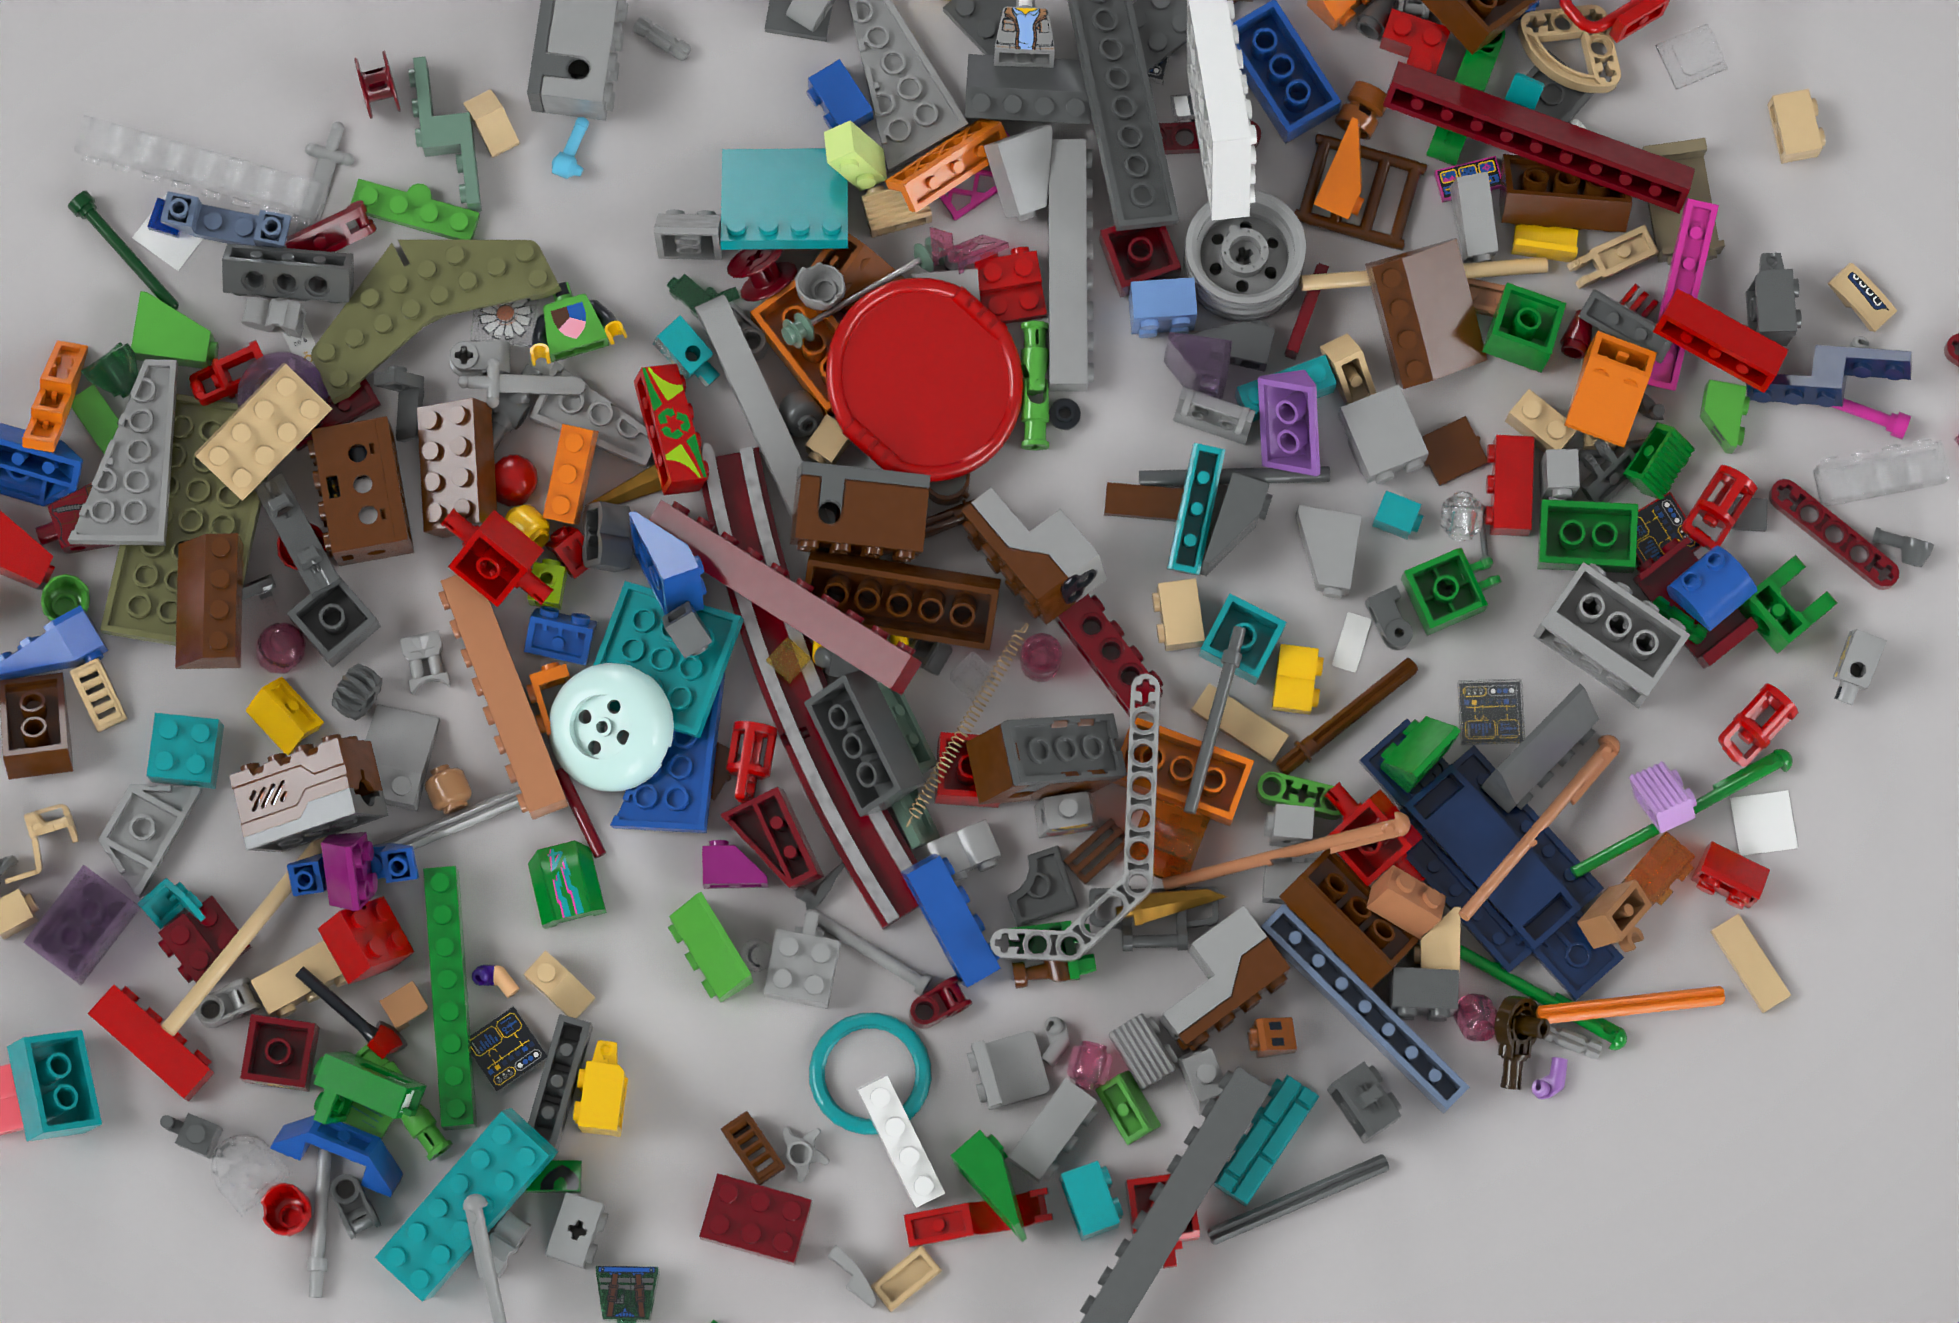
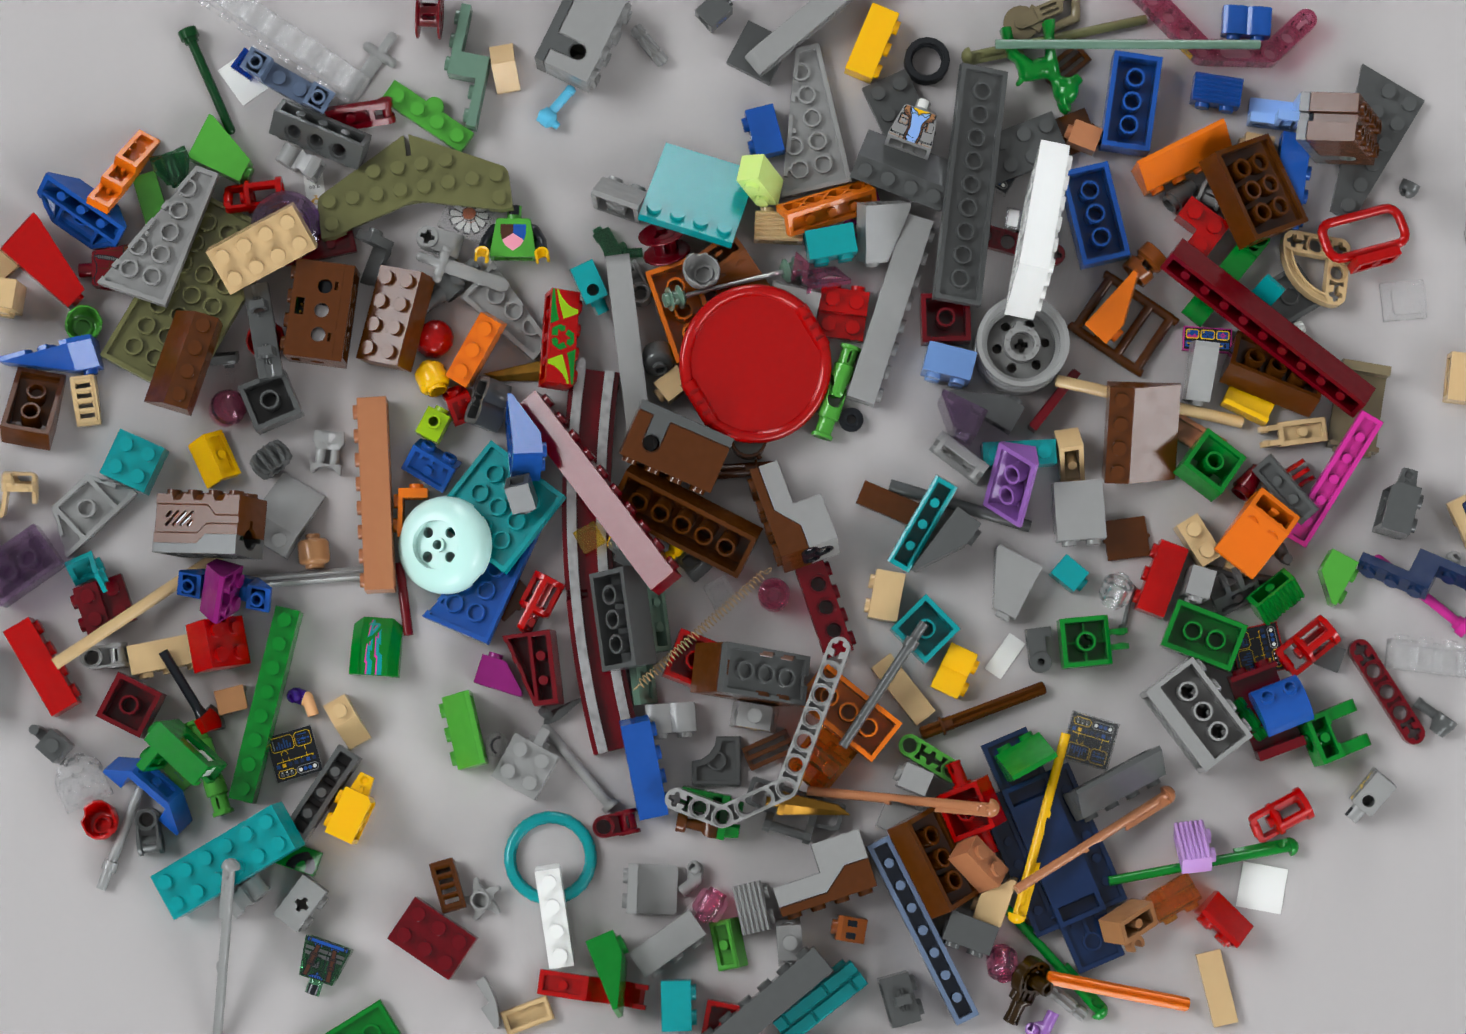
camera: 20 degrees right, 5 degrees up
(496, 558) = (400, 395): red brick -> none
(969, 206) = (830, 244): none -> teal brick
(1476, 925) = (1023, 899): none -> yellow bar
(1720, 340) = (1350, 524): red brick -> none

